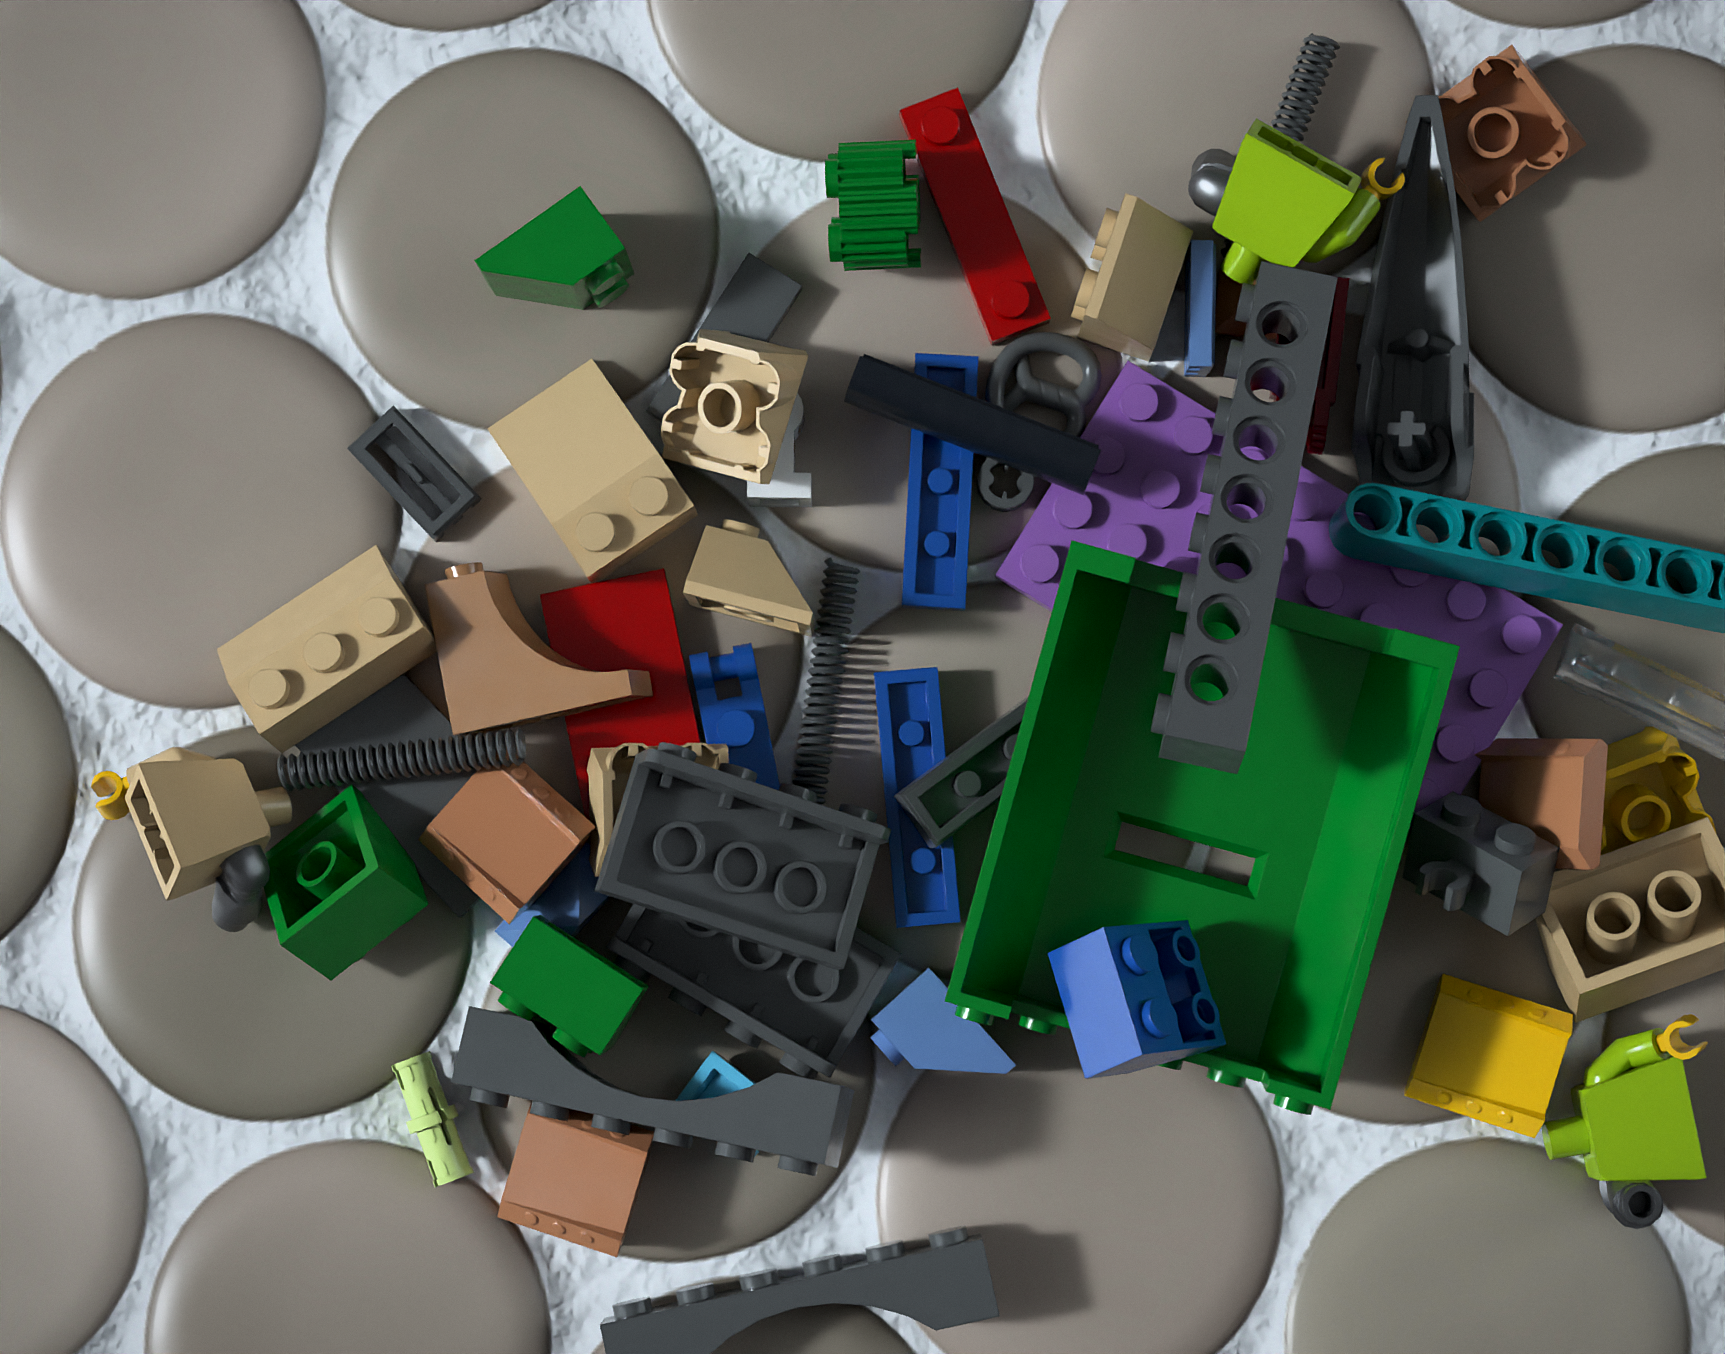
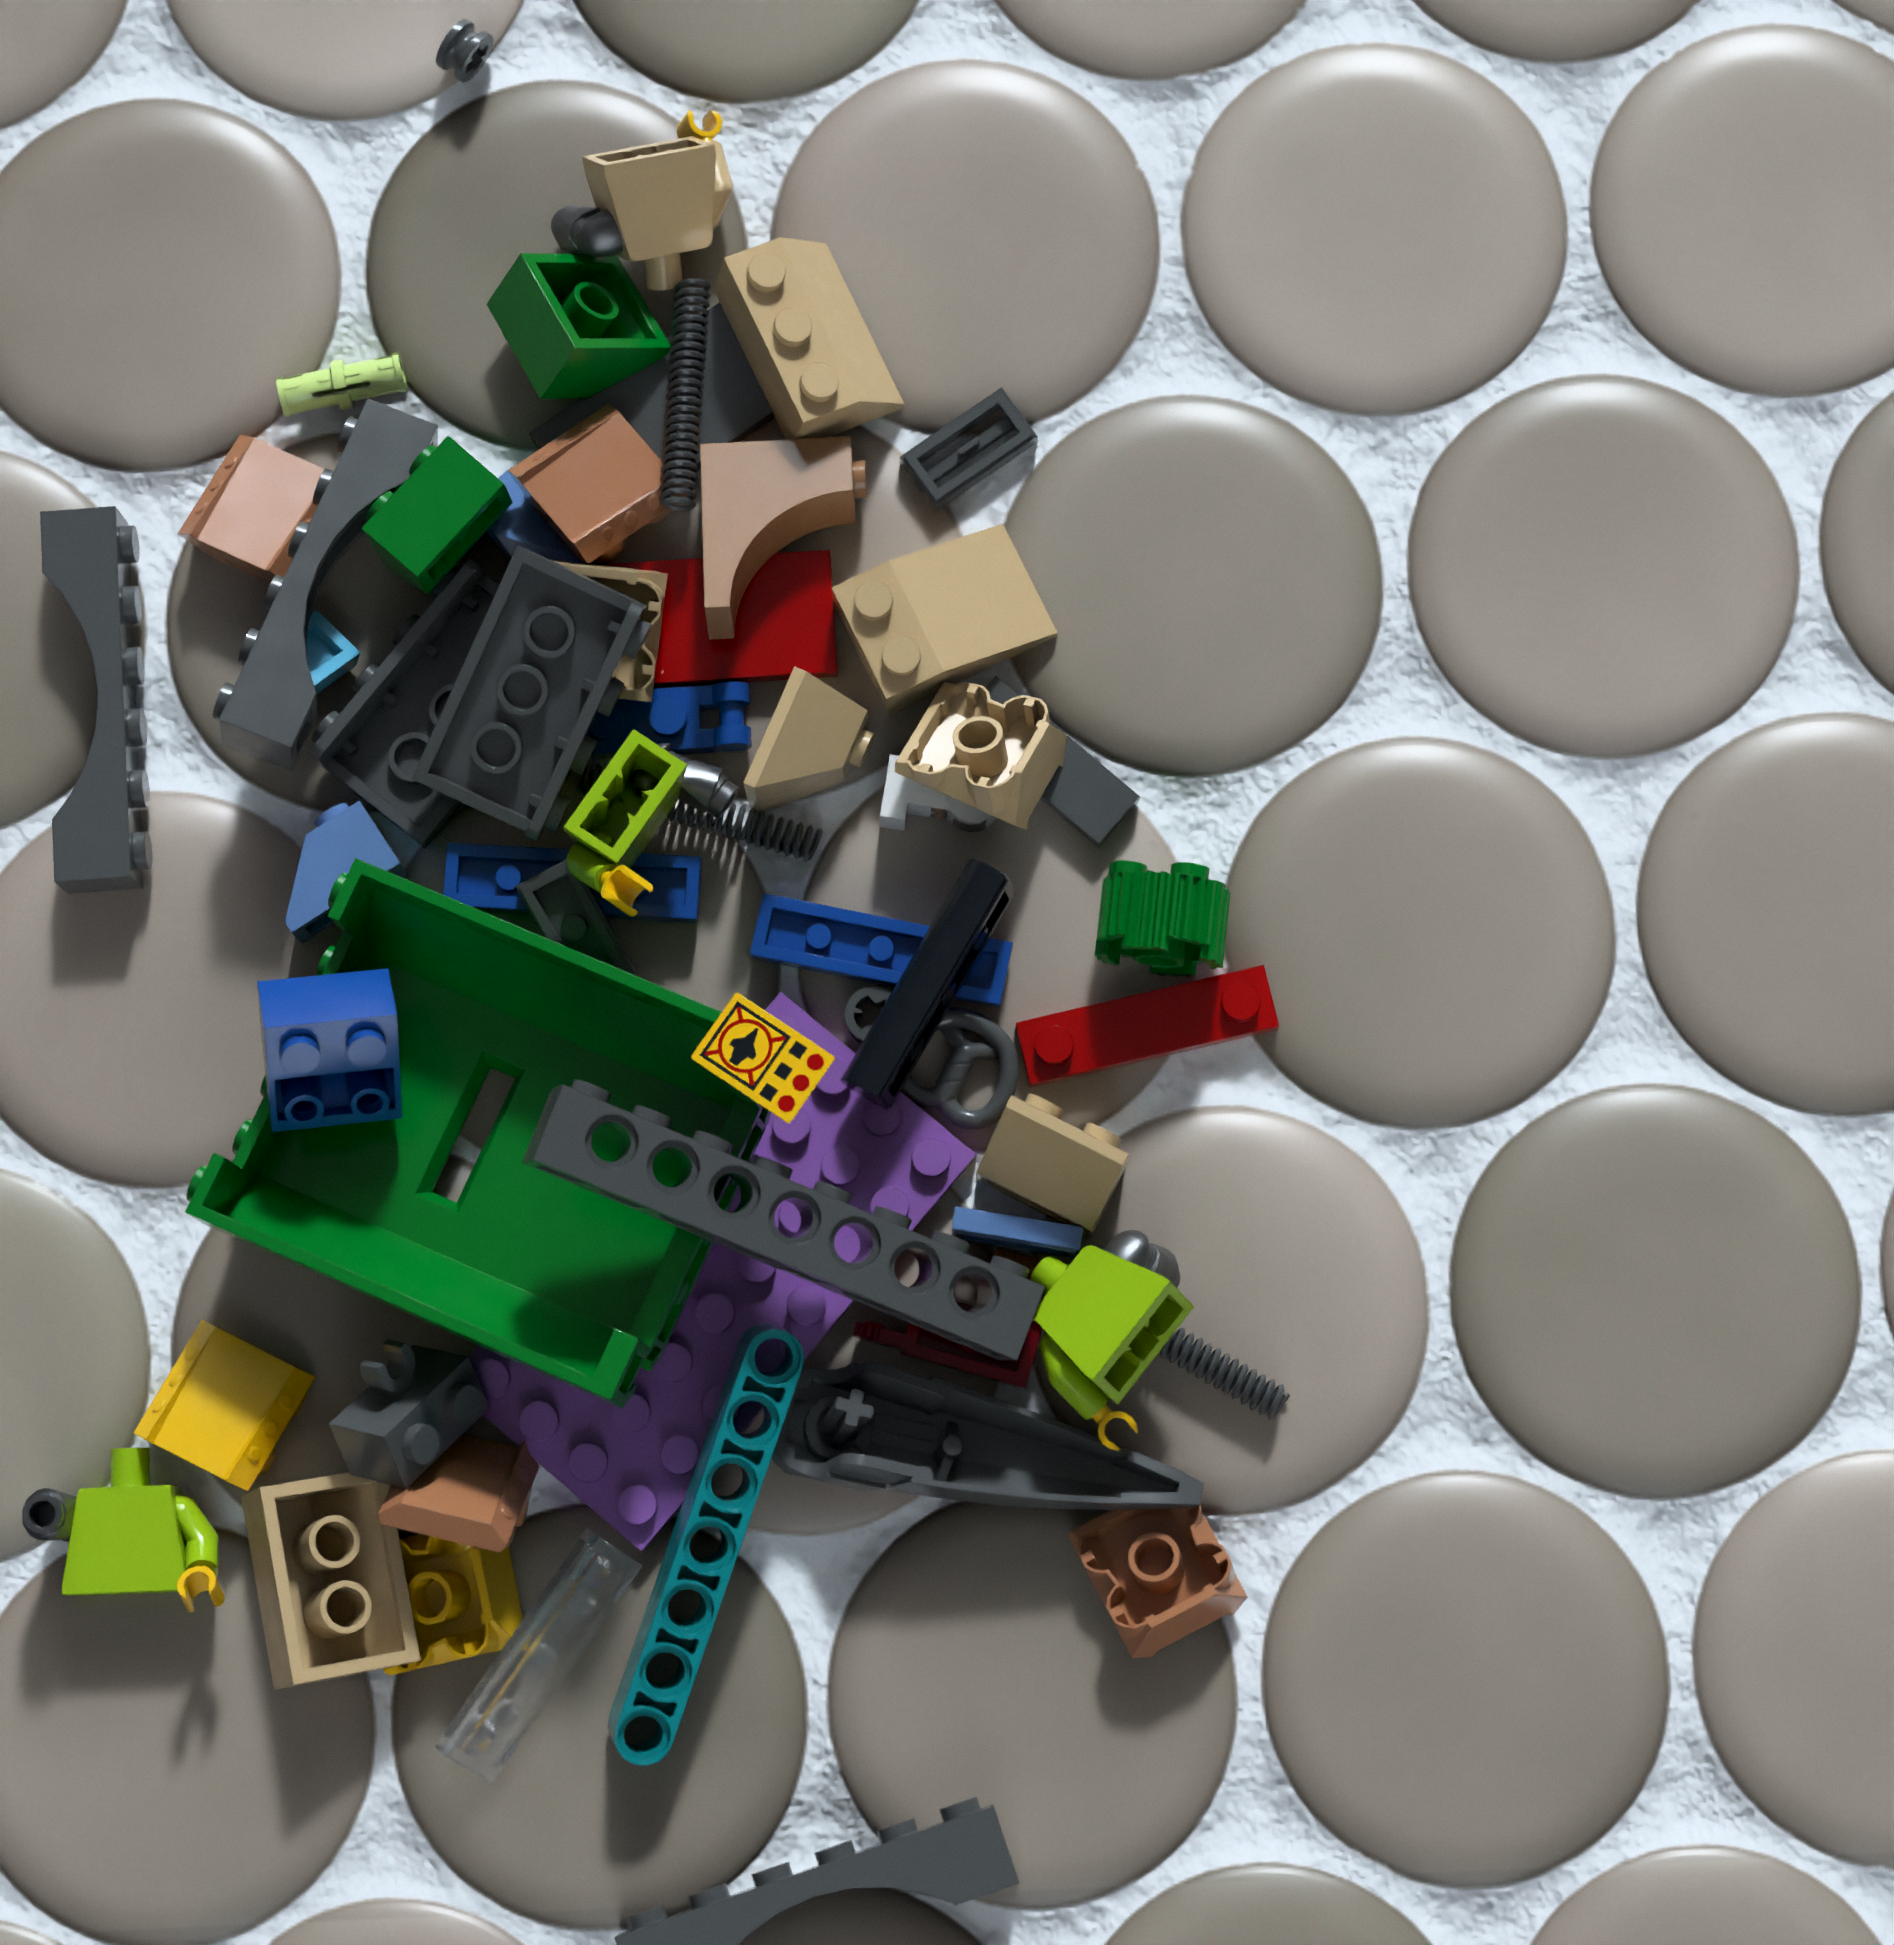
camera: 100 degrees right, 5 degrees down
(58, 1051) = (464, 50): none -> dark grey bush
(560, 258) = (1155, 610): green slope -> none
(850, 742) = (629, 808): none -> lime torso
(1096, 550) = (763, 1057): none -> yellow sticker

